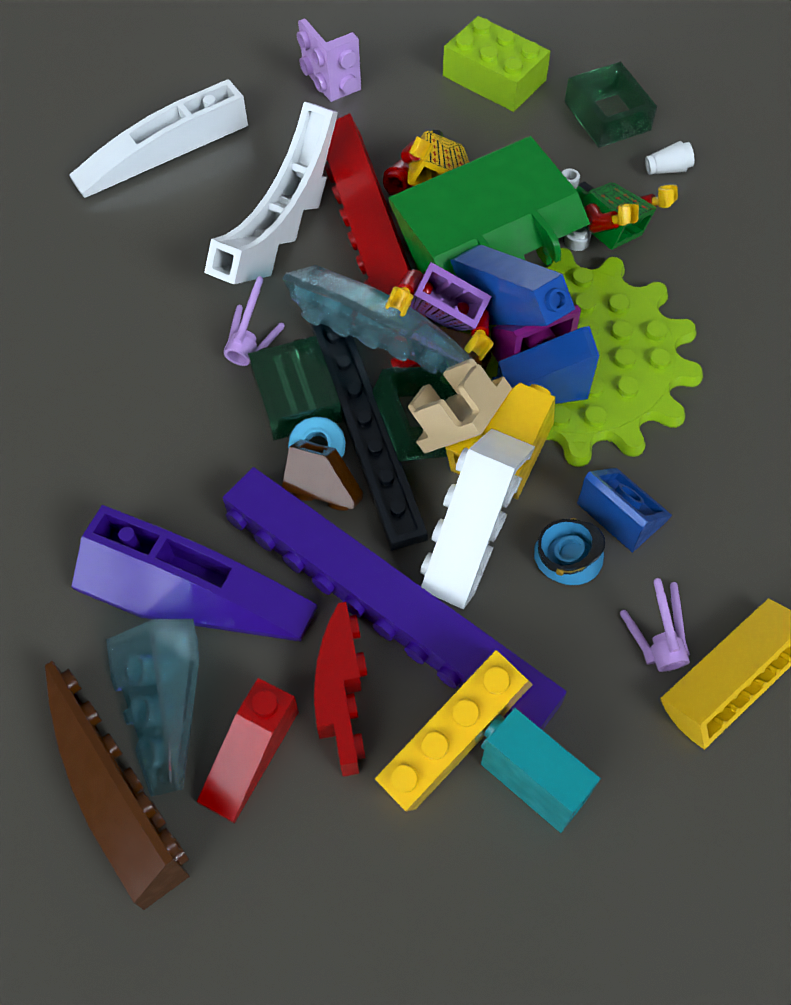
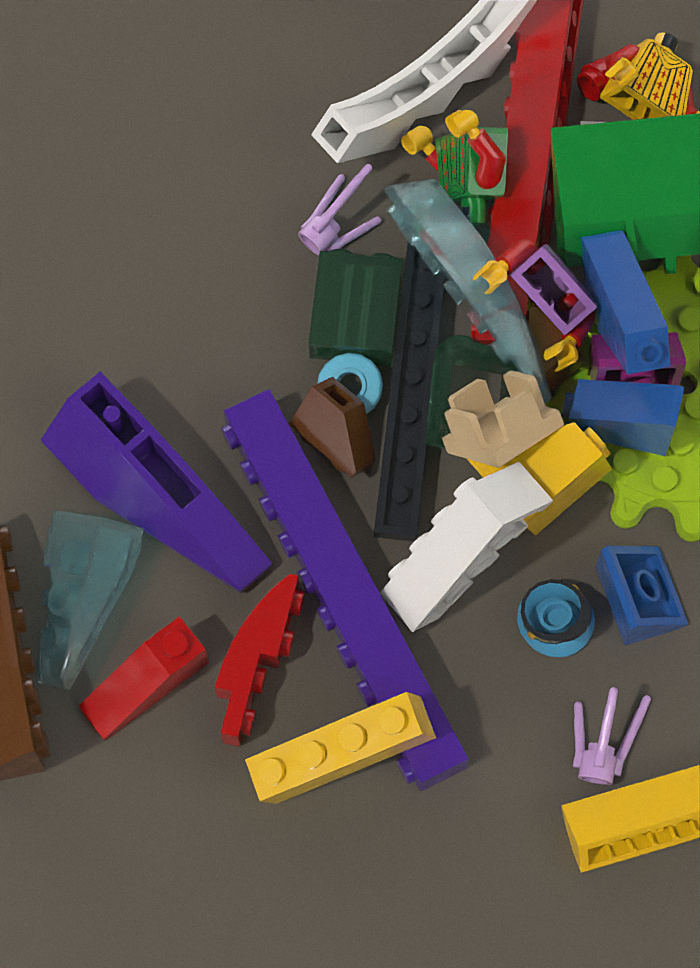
camera: 25 degrees right, 10 degrees up
(335, 245) = (468, 161): none -> torso
(537, 768) = (400, 818): teal brick -> none

